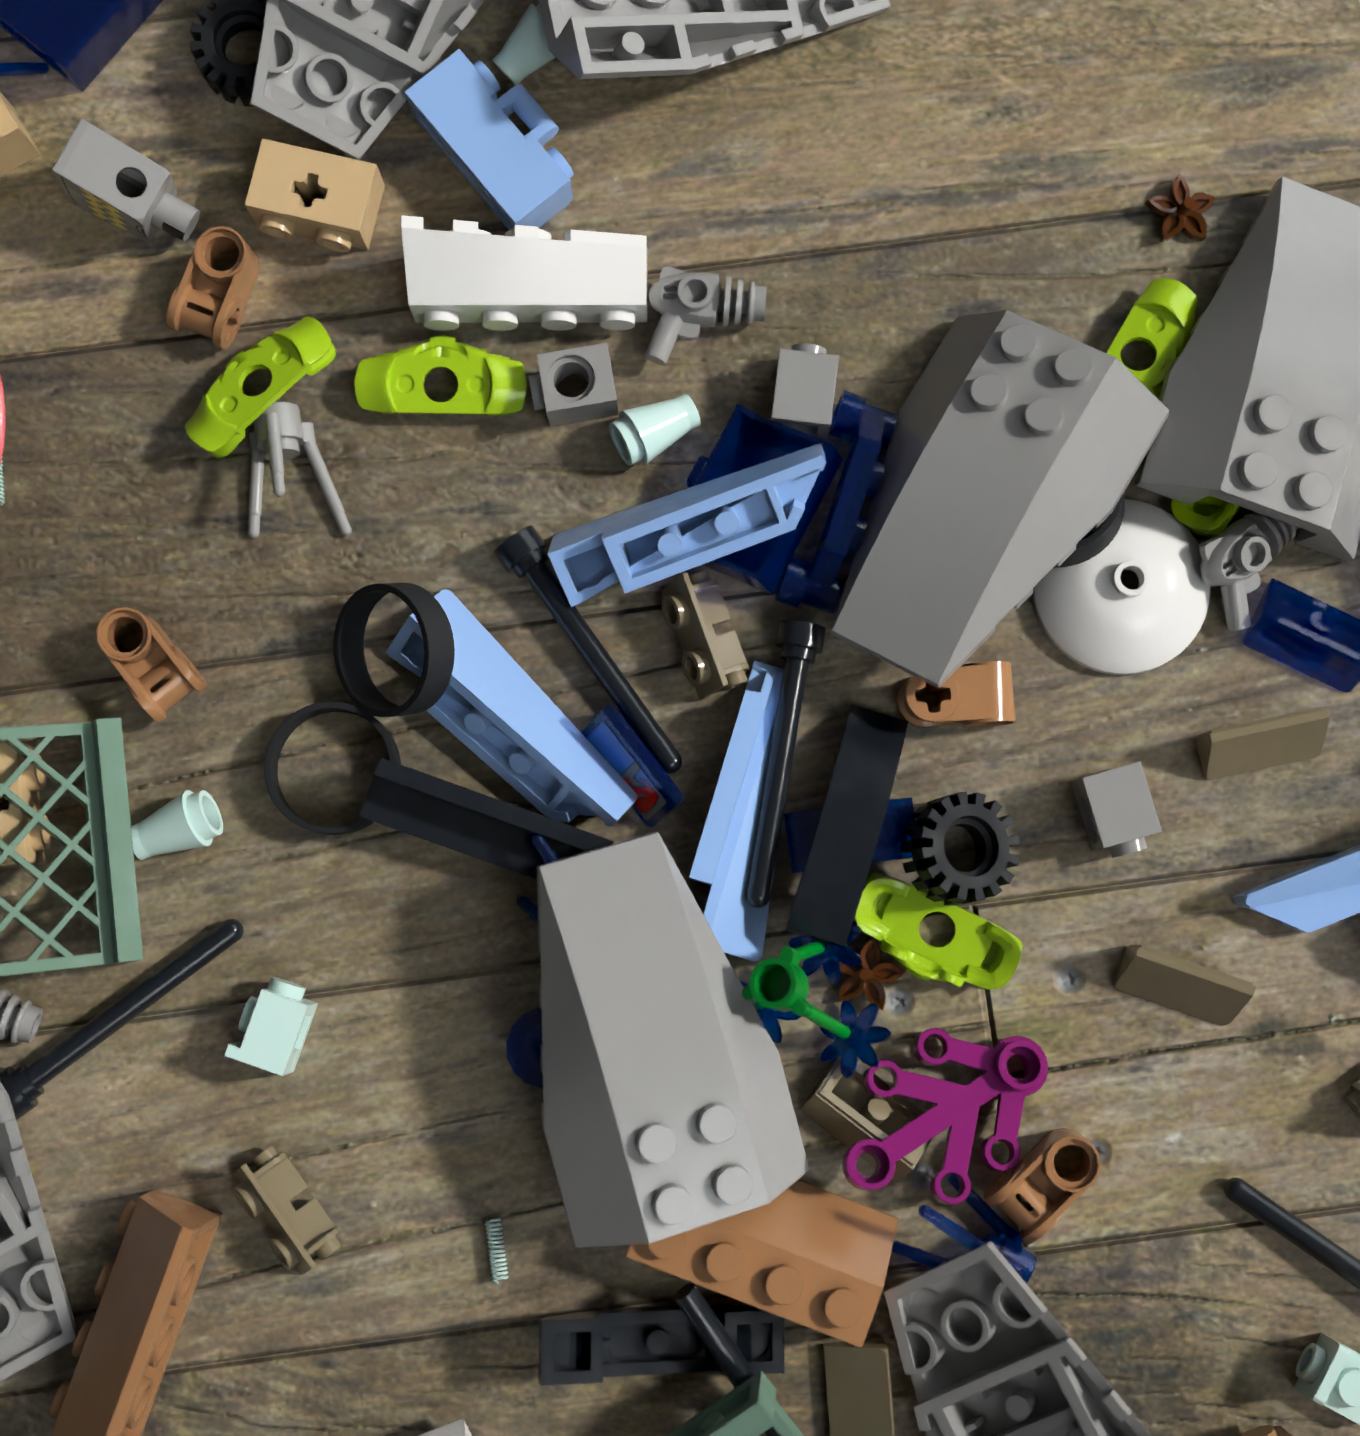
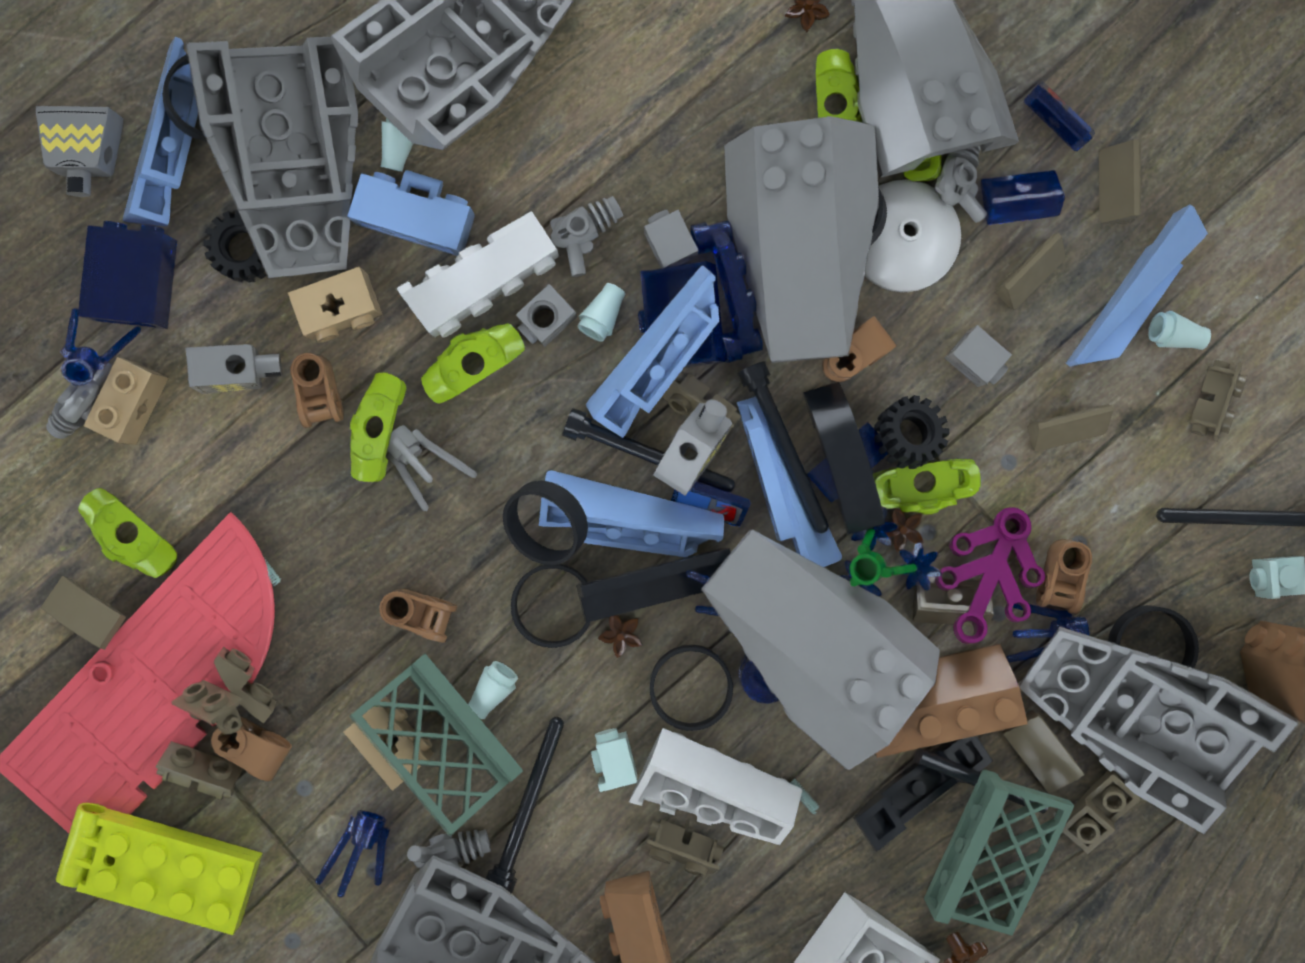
camera: 35 degrees left, 5 degrees up
(380, 1008) = (698, 725): none -> black tyre
(383, 1158) = (716, 789): none -> white wedge
(397, 867) = (621, 634): none -> reddish brown plant
(682, 669) = (703, 433): none -> light grey torso
(1163, 1392) = (1191, 640): none -> black tyre

